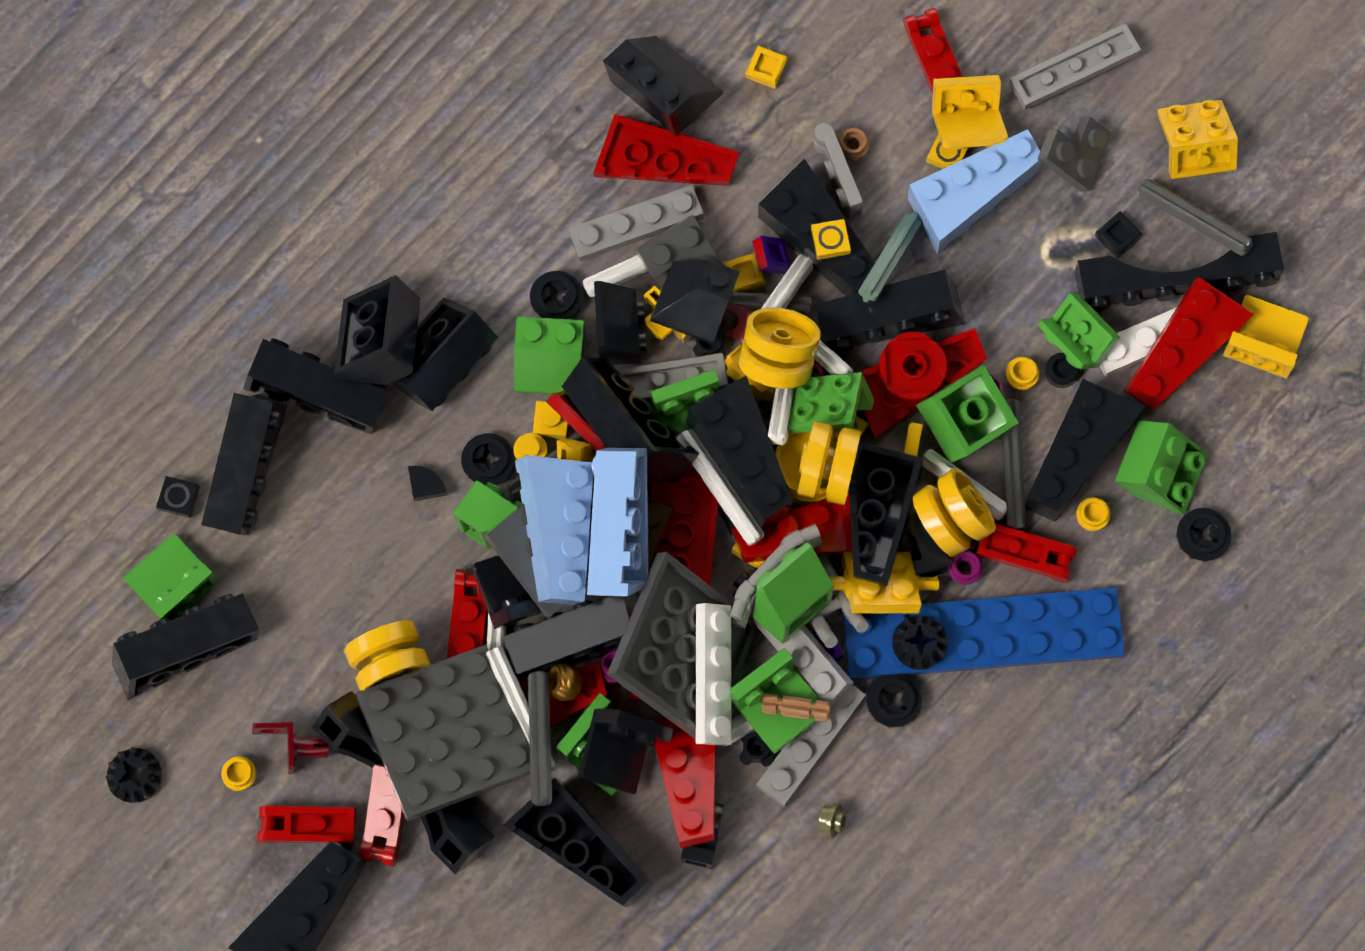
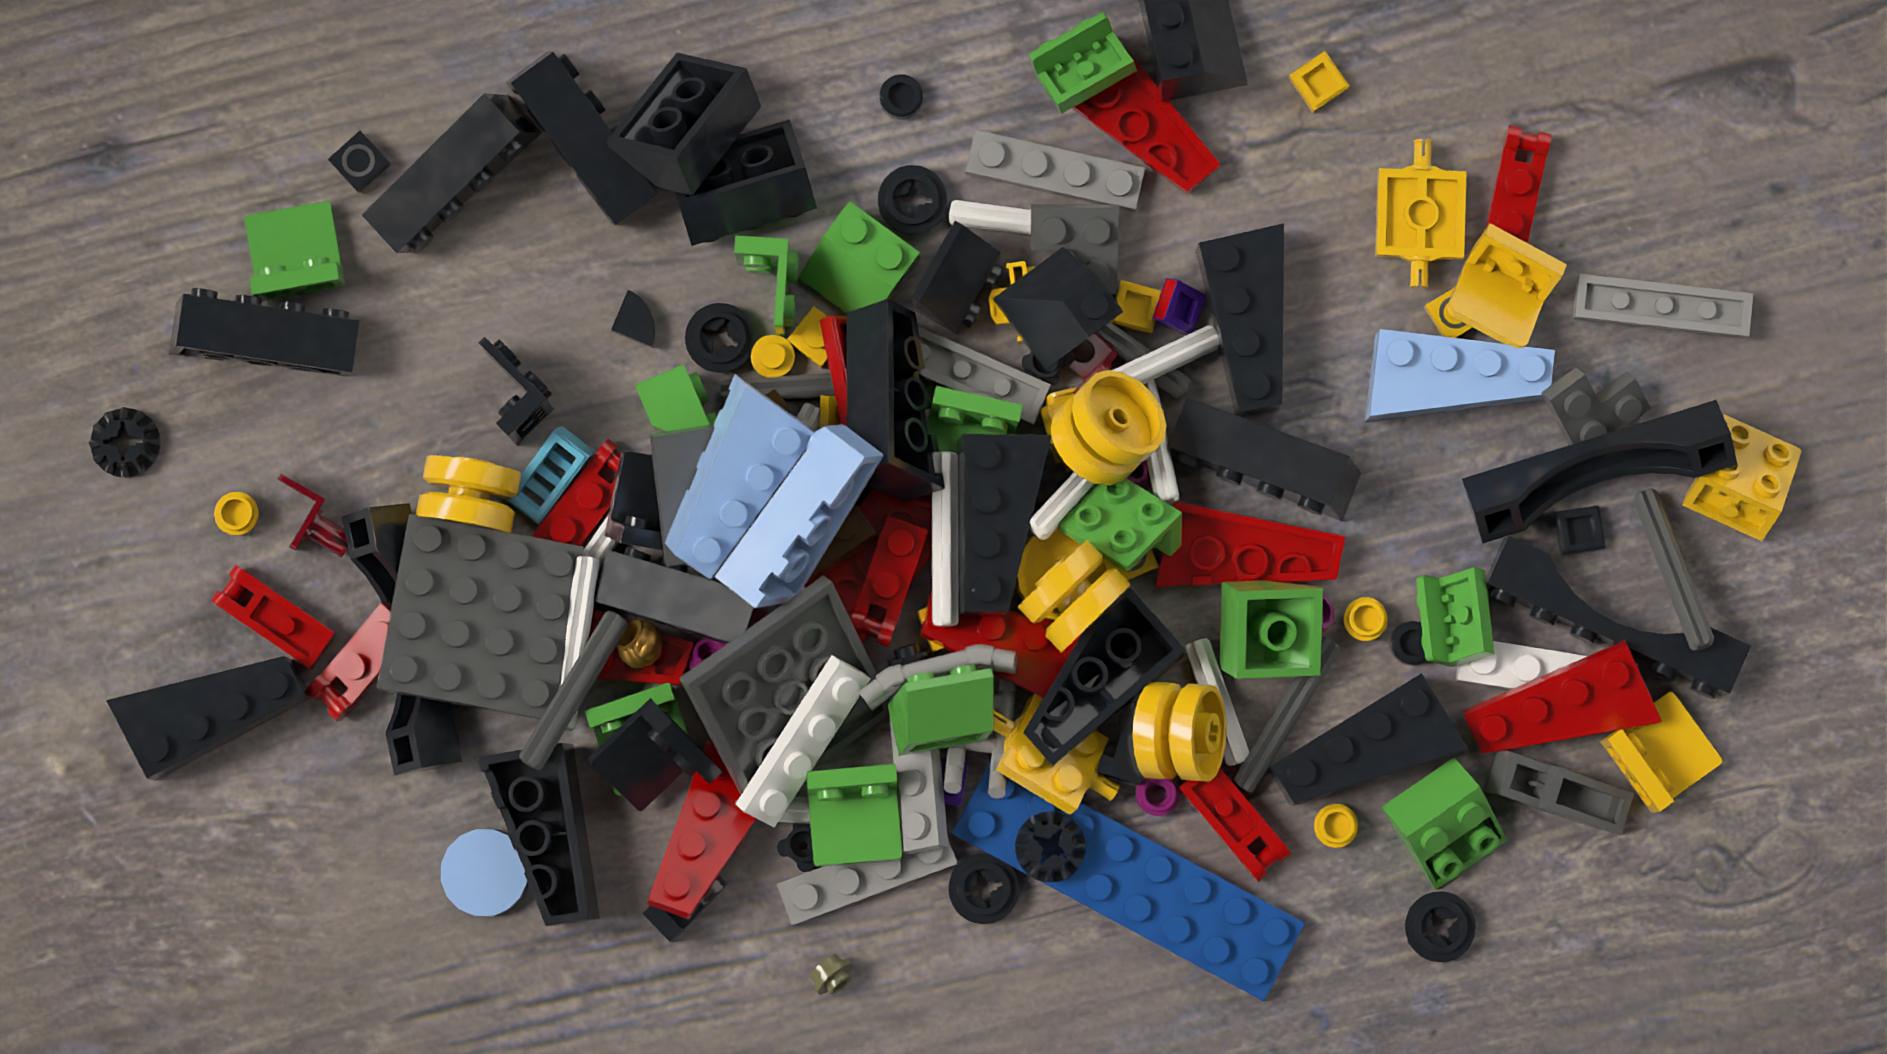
camera: 25 degrees right, 10 degrees up
(389, 572) = (518, 413): none -> black bracket
(420, 616) = (572, 444): none -> medium azure slope
(487, 381) = (762, 255): none -> bright green bracket
(506, 239) = (901, 97): none -> black tile
(556, 903) = (483, 873): none -> light blue tile
(573, 450) = (810, 400): yellow tile -> none
(609, 141) = (1081, 62): none -> bright green bracket
(699, 536) = (889, 578): none -> red plate
(796, 707) = (868, 834): medium nougat axle -> none
(830, 239) = (1248, 338): yellow tile -> none
(837, 169) = (1316, 253): light grey plate -> none
(857, 136) = (1358, 222): medium nougat plate -> none
(885, 105) = (1420, 214): none -> yellow plate
(890, 257) = (1303, 398): sand green axle -> none
(913, 439) = (1191, 620): yellow tile -> none
(926, 380) = (1270, 530): red plate -> none
(1145, 136) = (1679, 443): none -> black arch
(1219, 401) = (1559, 792): none -> dark grey slope

